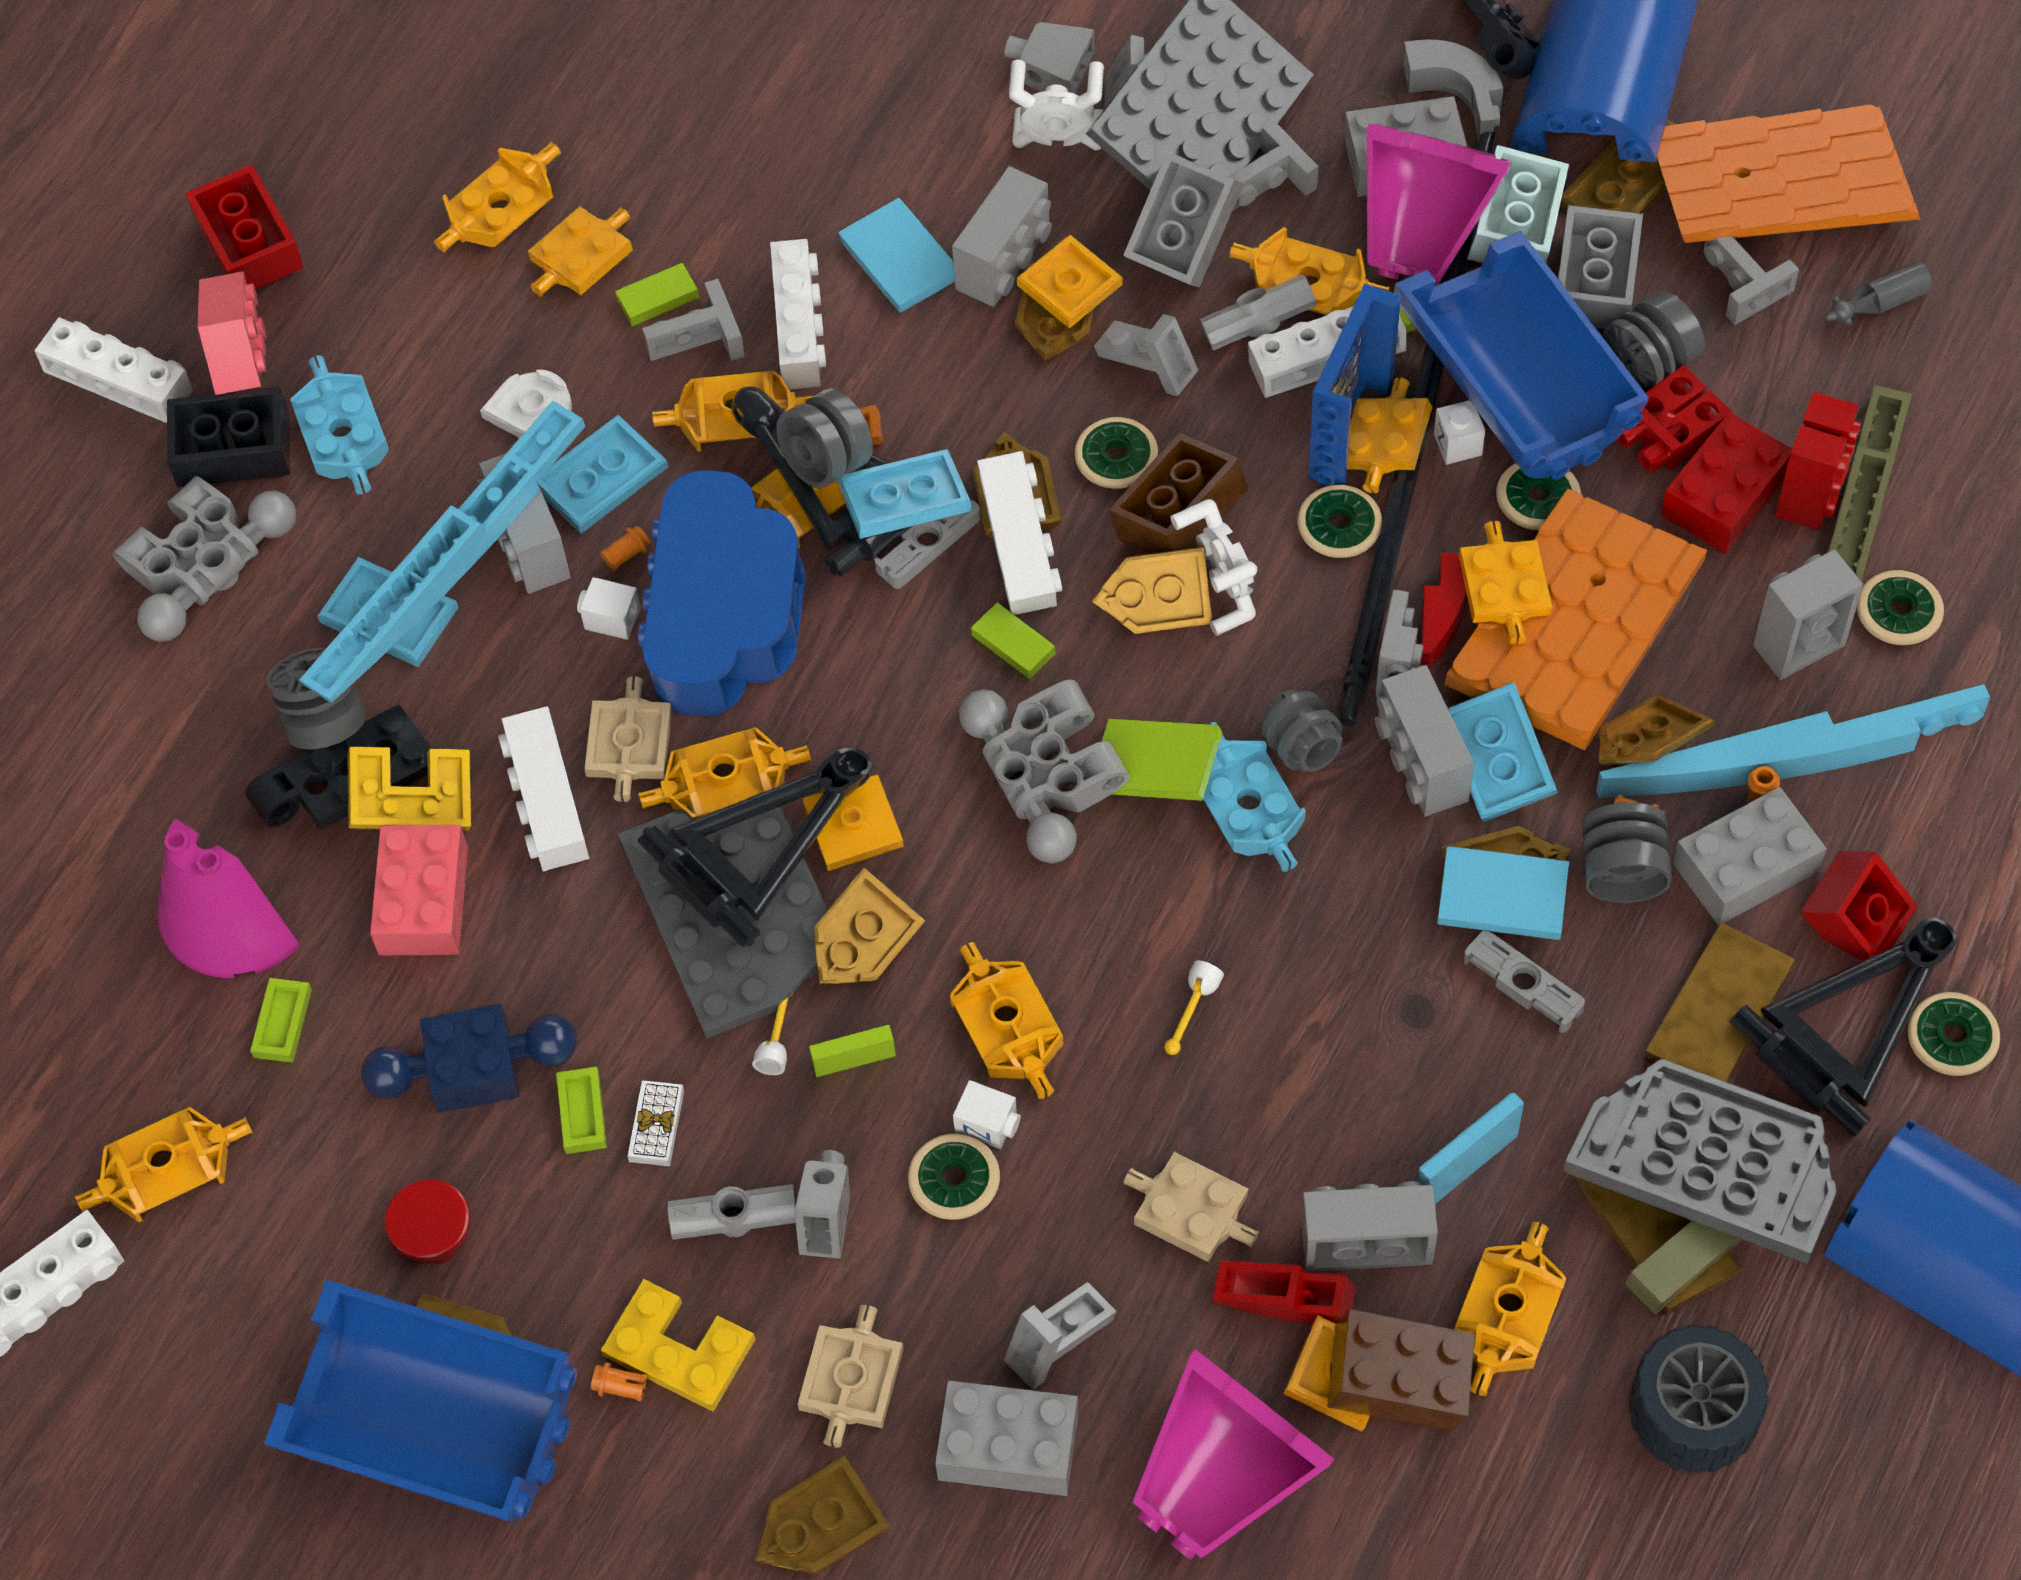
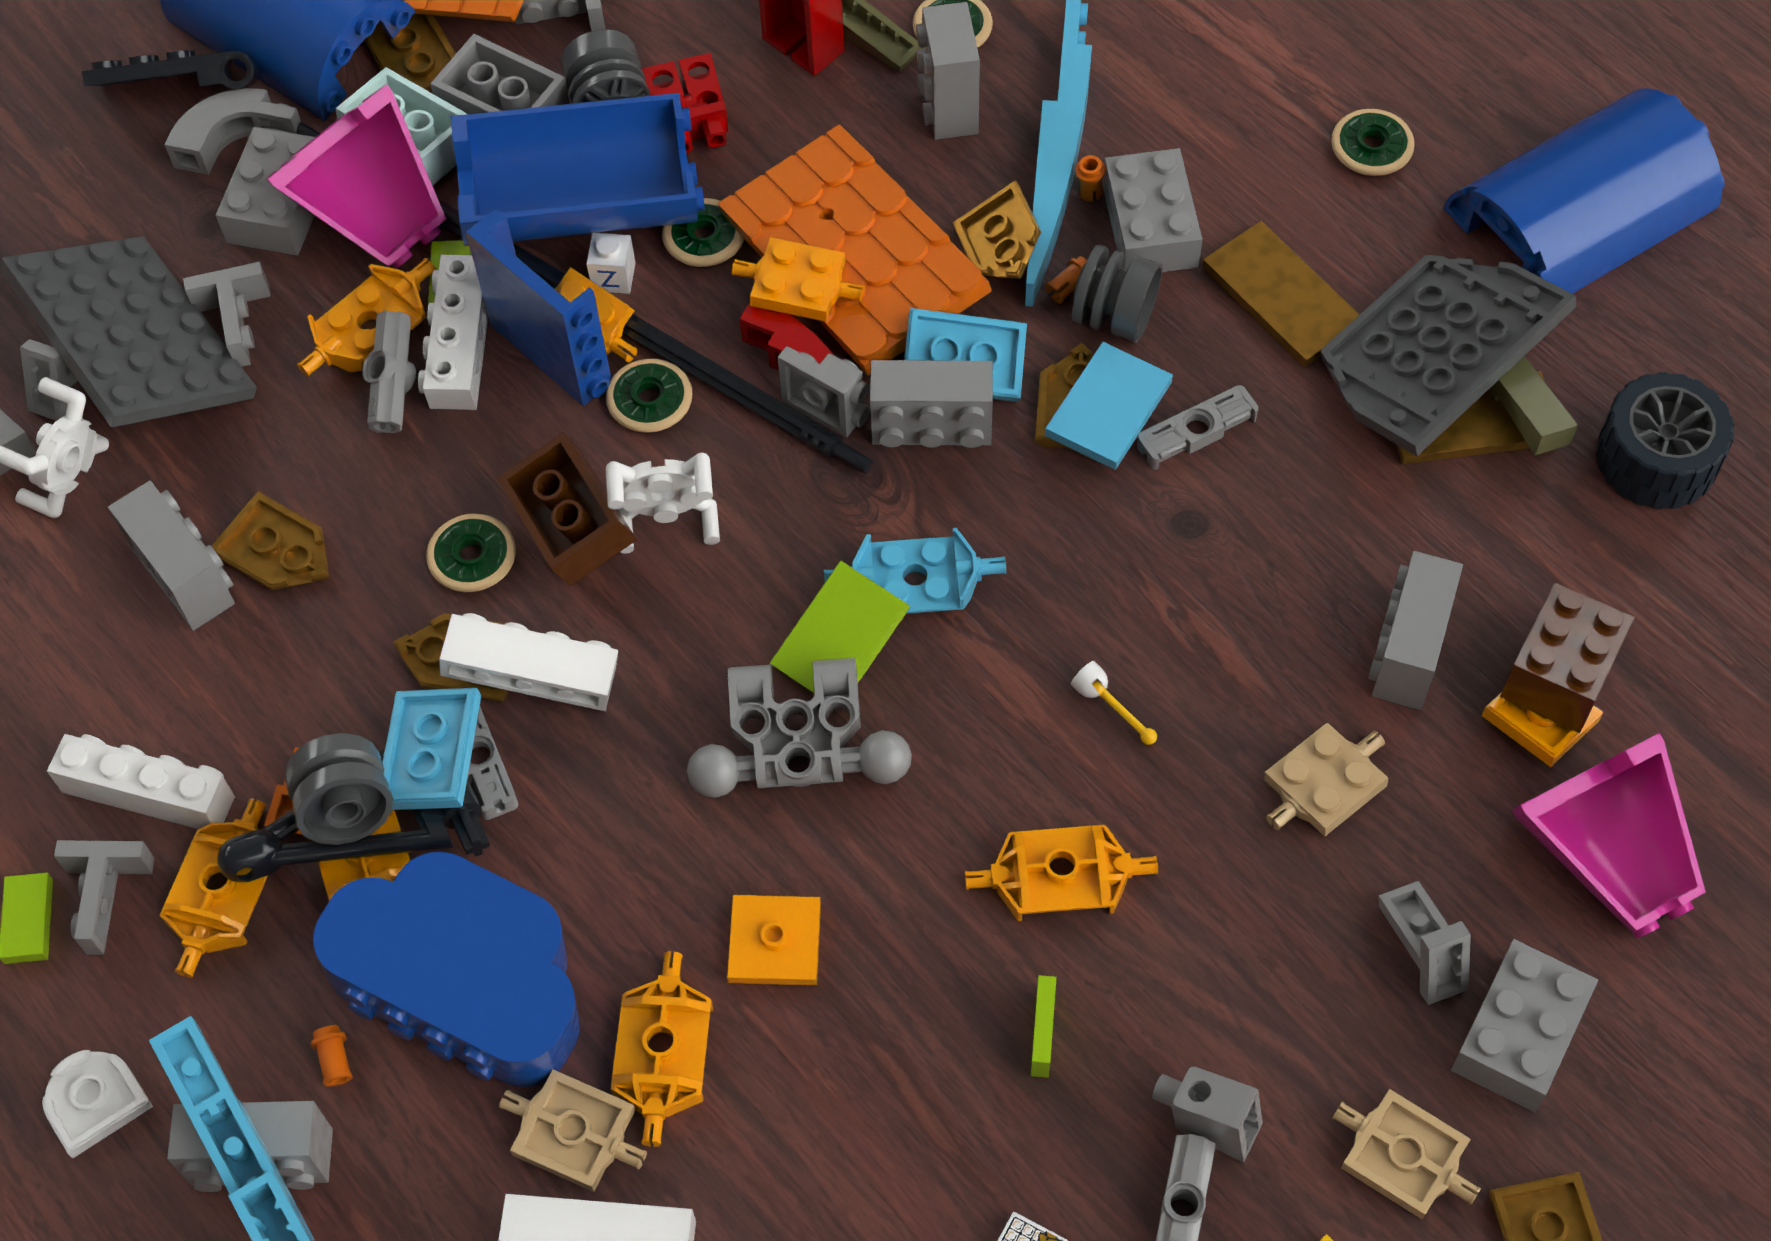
camera: 70 degrees left, 0 degrees up
(600, 474) = (234, 1035): medium azure tile -> none
(609, 608) = (401, 1095): white brick -> none
(713, 882) = (792, 1095): black piece -> none
(719, 976) = (821, 1095): dark grey plate -> none
(771, 1055) = (1012, 1109): white hinge -> none
(862, 932) = (912, 970): pearl gold tile -> none
(898, 255) = (122, 665): medium azure tile -> none
(957, 1200) = (1211, 1007): wheel -> none
(986, 1115) = (1164, 924): white brick -> none
(1013, 640) = (636, 718): lime tile -> none
(1069, 281) = (258, 517): light orange plate -> none
(1157, 350) = (375, 479): light grey bracket -> none
(1158, 591) = (656, 565): tile -> none
(1183, 219) = (256, 386): light grey brick -> none
(1283, 1291) = (1445, 730): red slope -> none
(1301, 730) = (868, 500): dark grey piece -> none
(1473, 1147) = (1368, 522): medium azure tile -> none
(1503, 1337) = (1487, 543): light orange plate -> none
(1726, 483) = (773, 88): red brick -> none
(1809, 1061) = (1351, 250): black piece -> none
(1859, 905) = (1229, 157): red slope -> none

